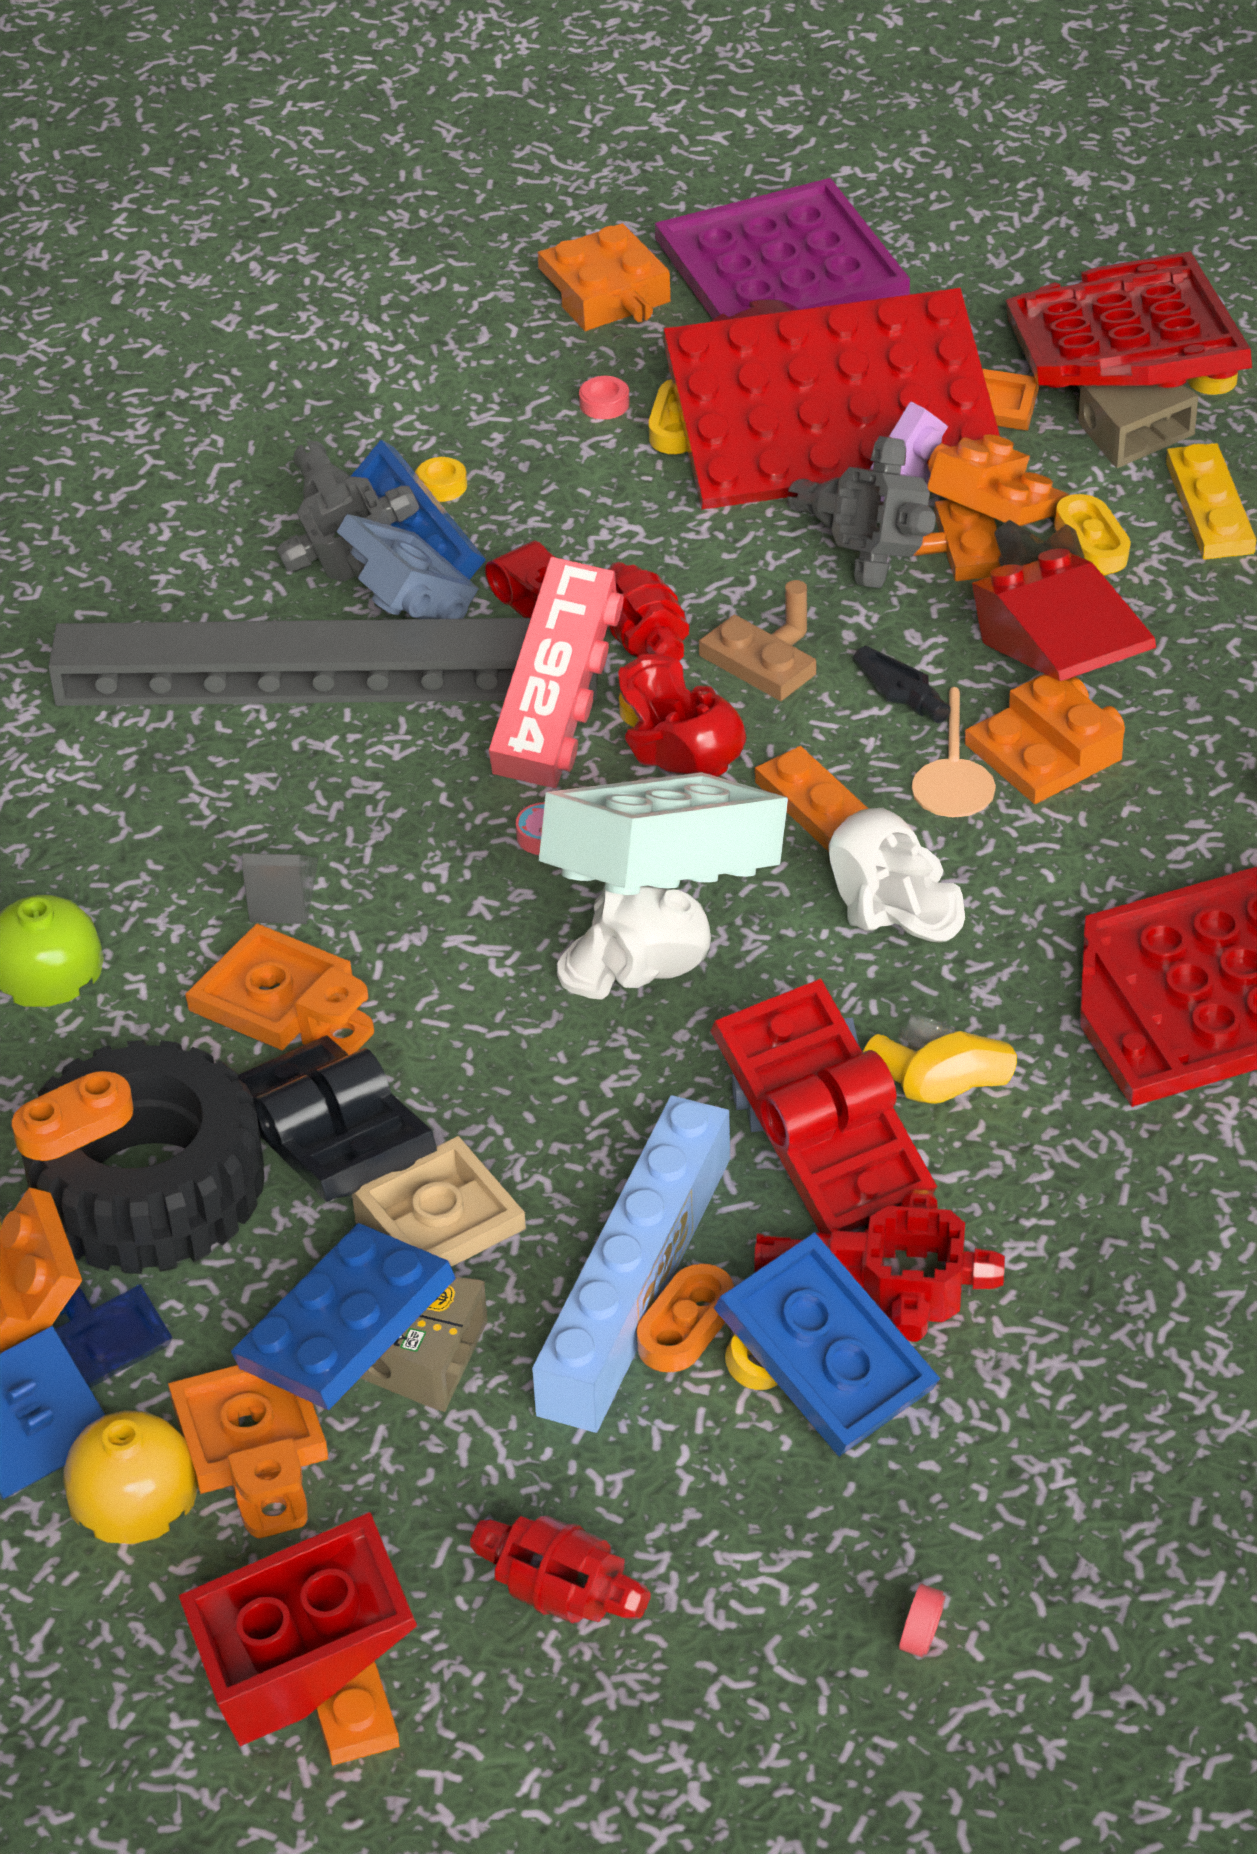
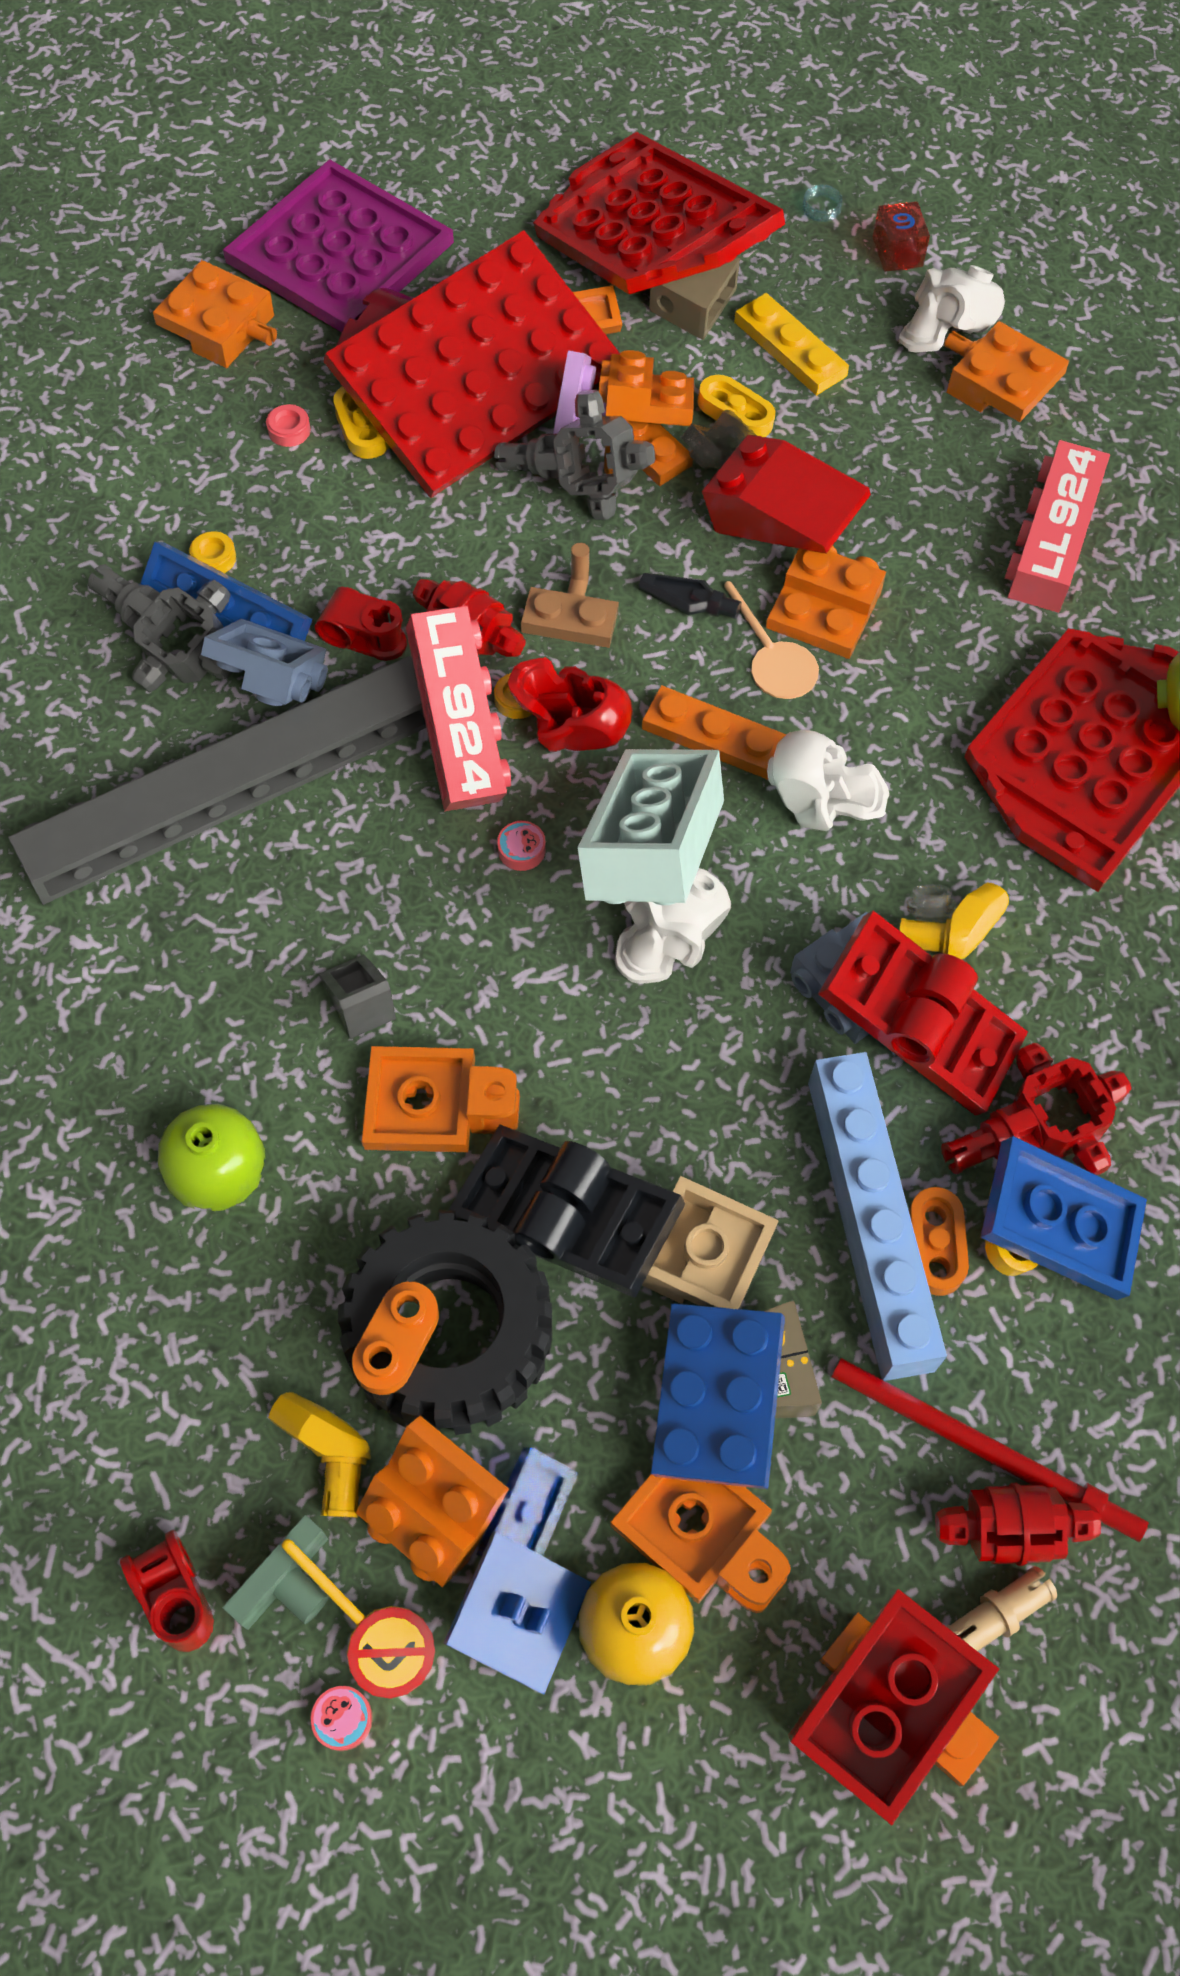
camera: 35 degrees left, 20 degrees up
(484, 1639) = (1003, 1610): none -> tan pin
(664, 1603) = (988, 1448): none -> red bar

